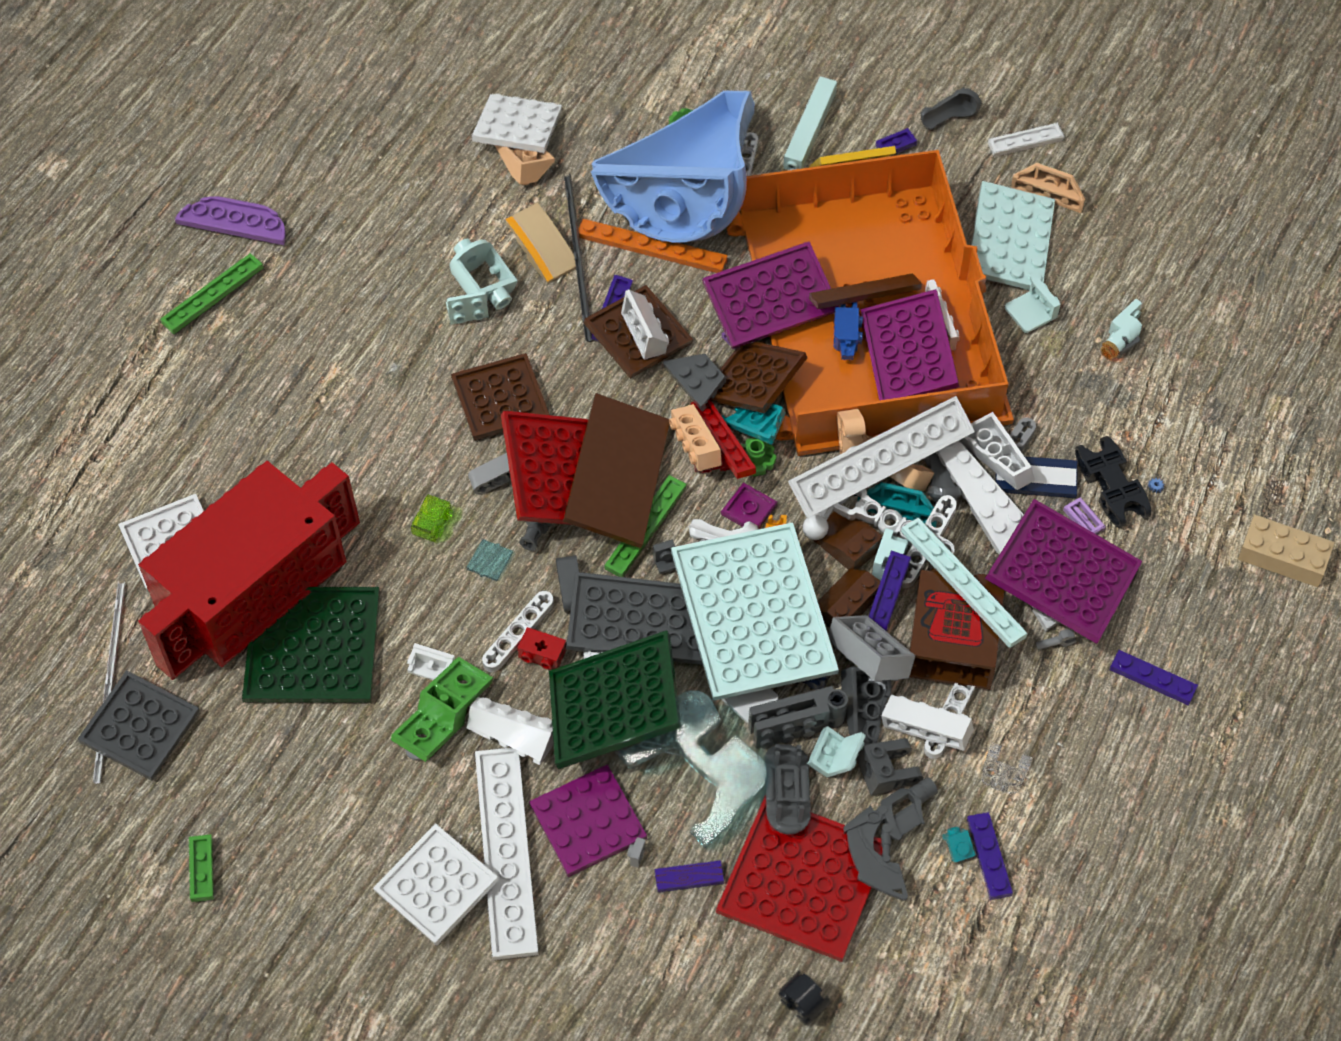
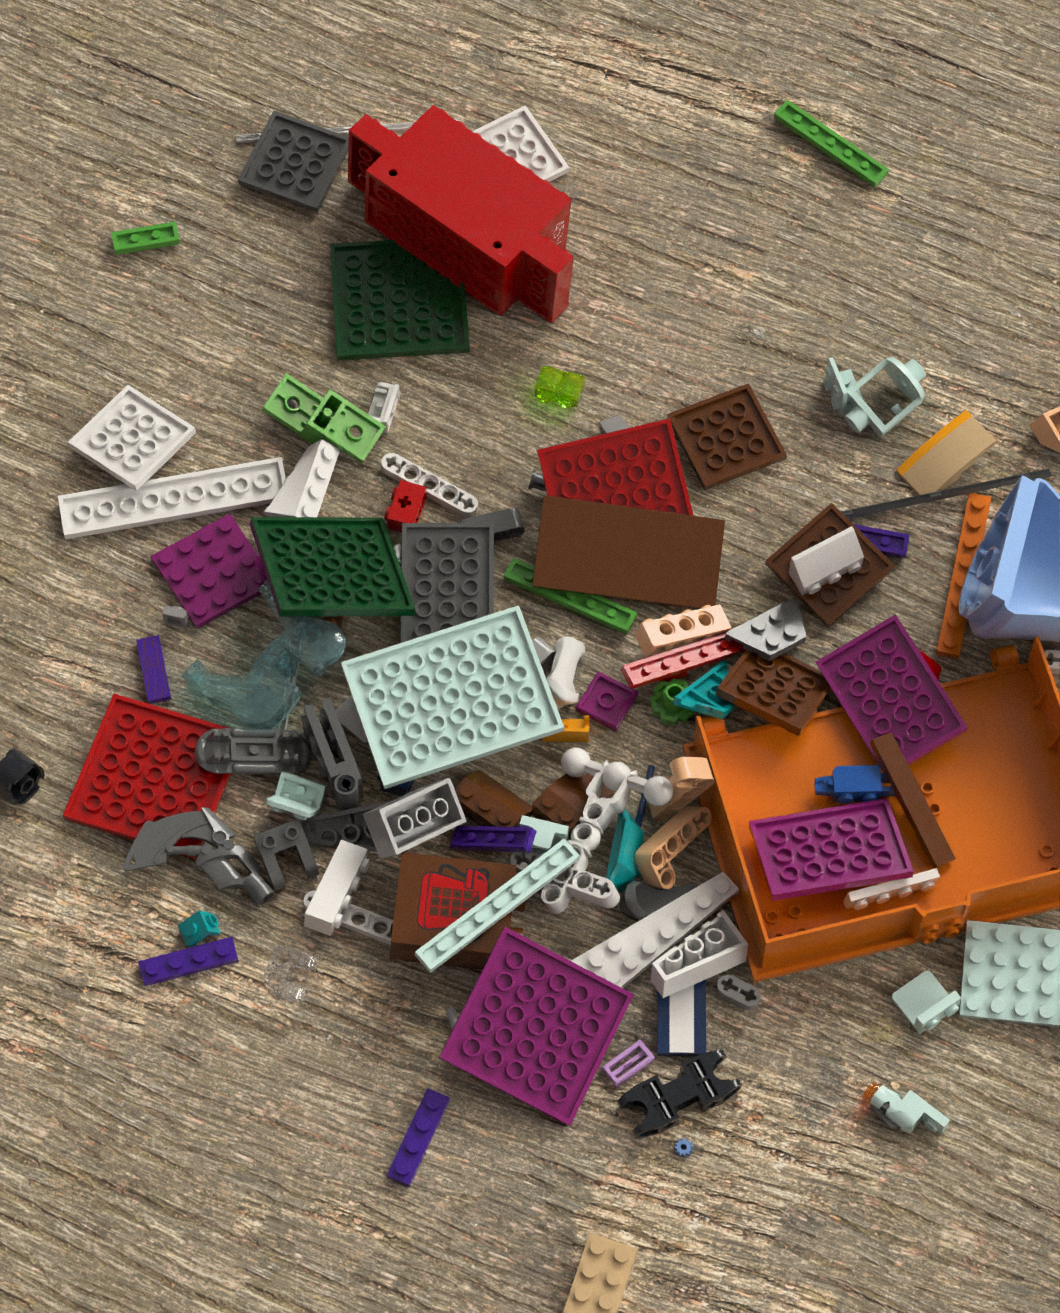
camera: 85 degrees right, 5 degrees up
(234, 218) = (936, 150): medium lavender plate -> none
(489, 560) = (516, 450): clear light blue piece -> none
(663, 556) = (531, 614): dark grey bracket -> none
(881, 457) = (655, 813): white plate -> none

